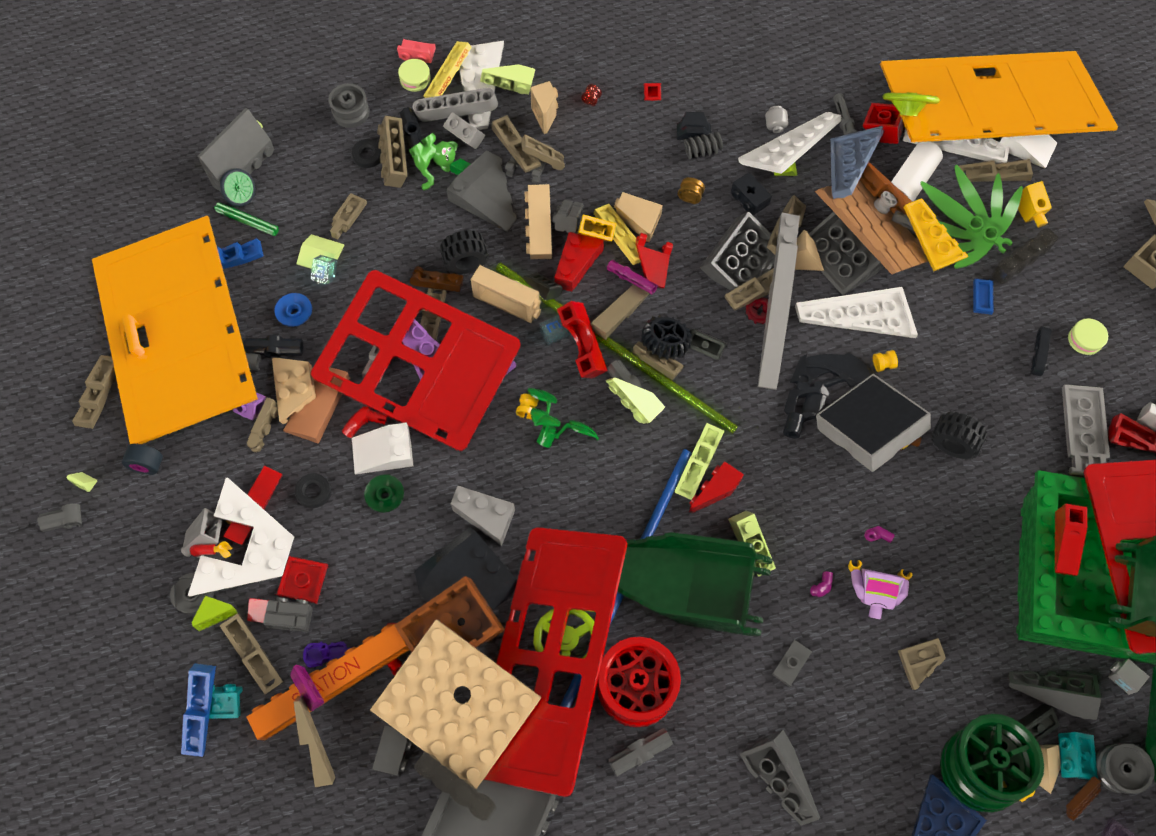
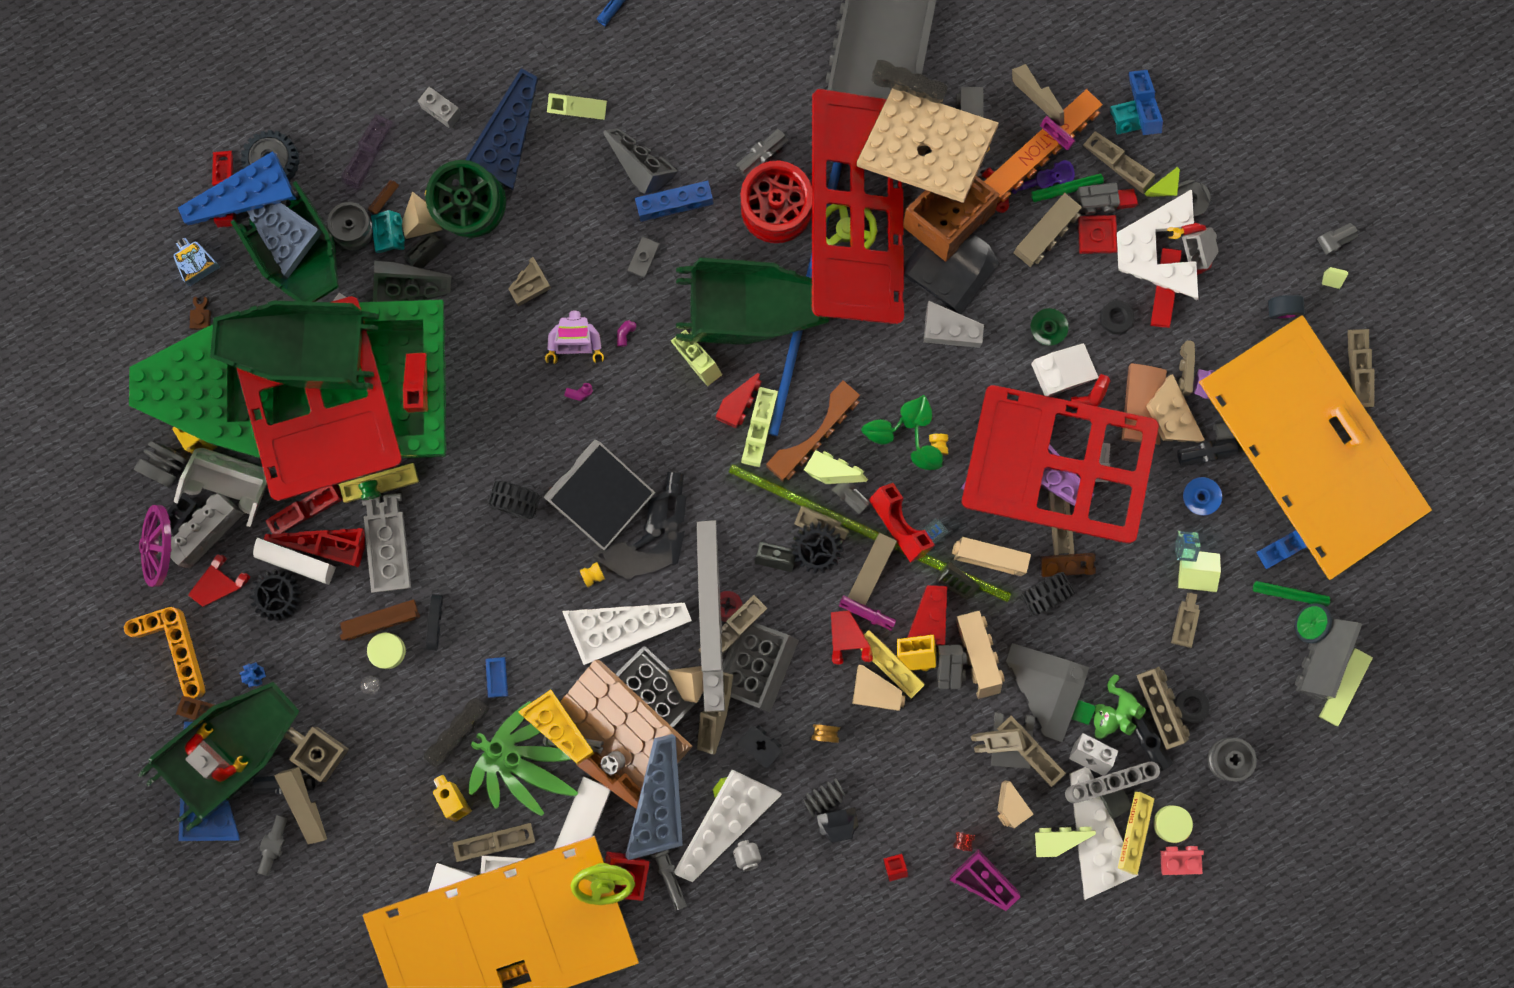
camera: 170 degrees right, 15 degrees up
(316, 636) = (1067, 187): none -> green axle
(352, 591) = (1047, 230): none -> dark tan brick
(581, 63) = (984, 879): none -> magenta wedge
(679, 422) = (786, 460): none -> dark orange arch
(750, 716) = (674, 201): none -> blue brick
(1094, 362) = (379, 620): none -> reddish brown fence
(1103, 312) = (370, 685): none -> clear tile

